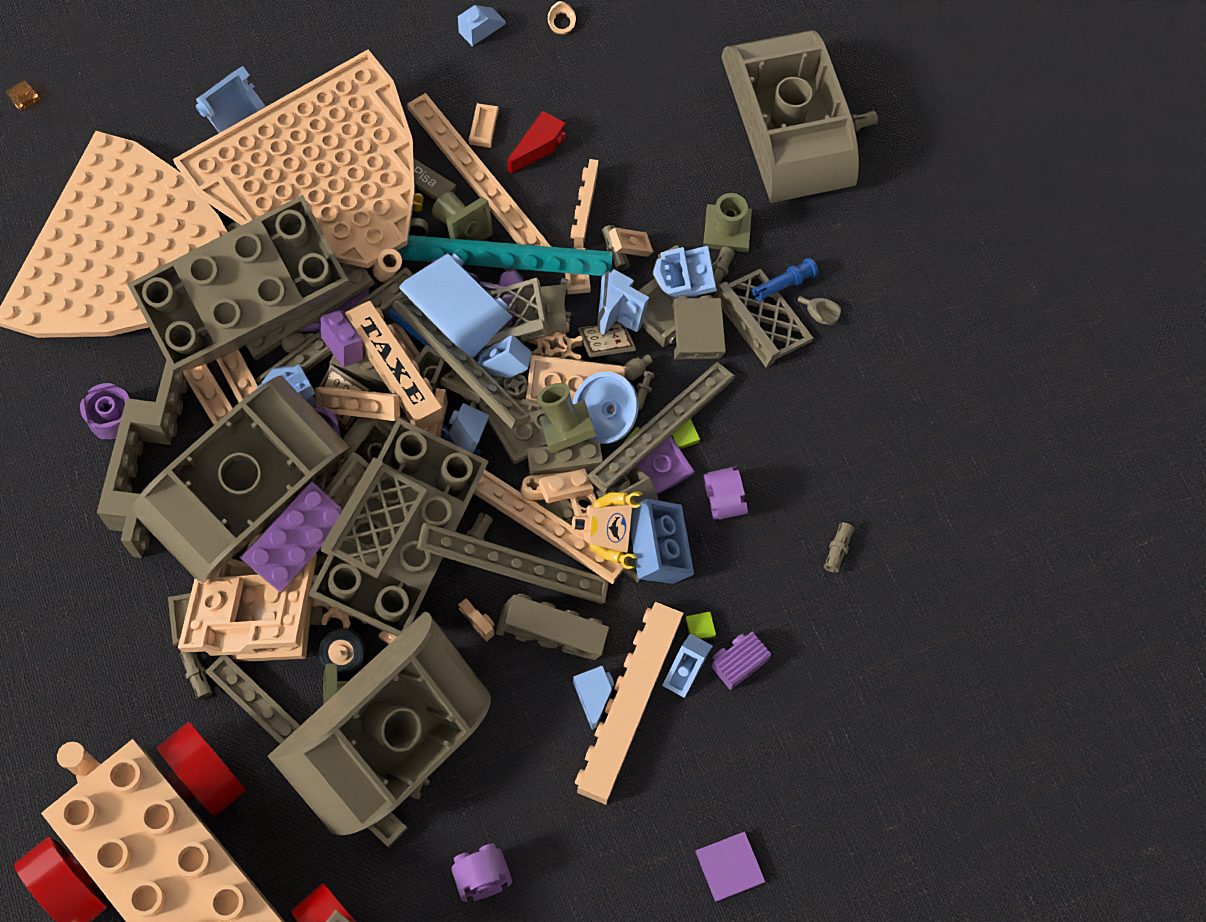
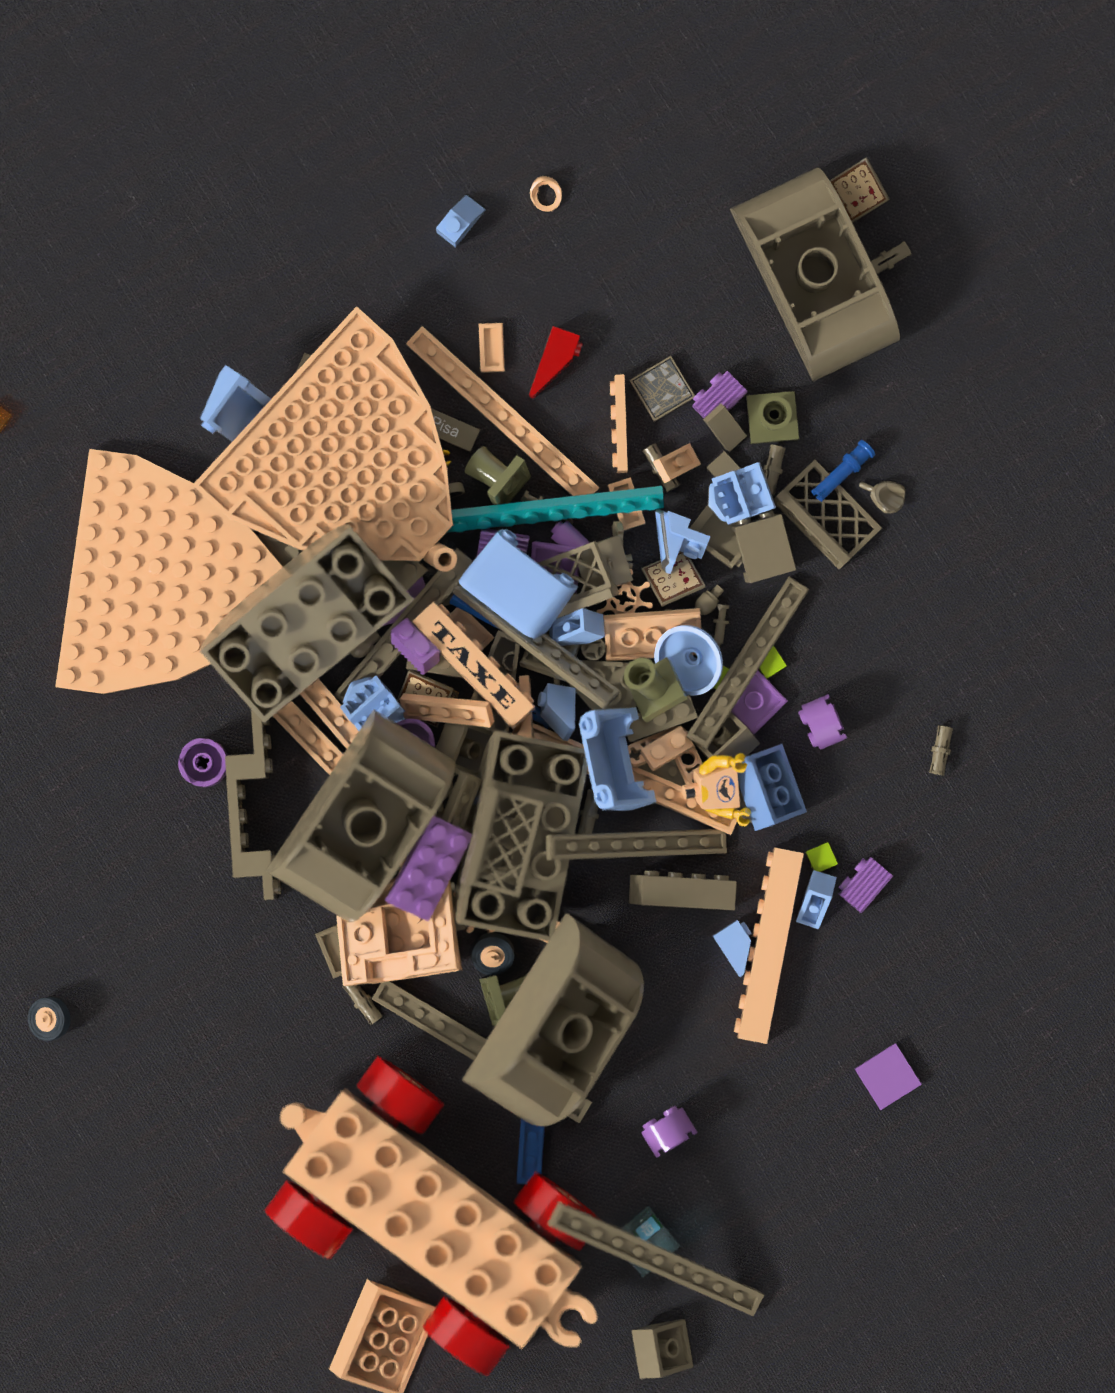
camera: 10 degrees left, 20 degrees up
(330, 862) = (530, 1151): none -> blue tile
(482, 624) = (616, 898): light nougat plate -> none
(505, 456) = (609, 759): none -> light blue windscreen
(630, 186) = (662, 388): none -> tile
(681, 200) = (724, 390): none -> medium lavender brick
(682, 221) = (724, 427): none -> dark tan tile
(845, 60) = (859, 189): none -> piece

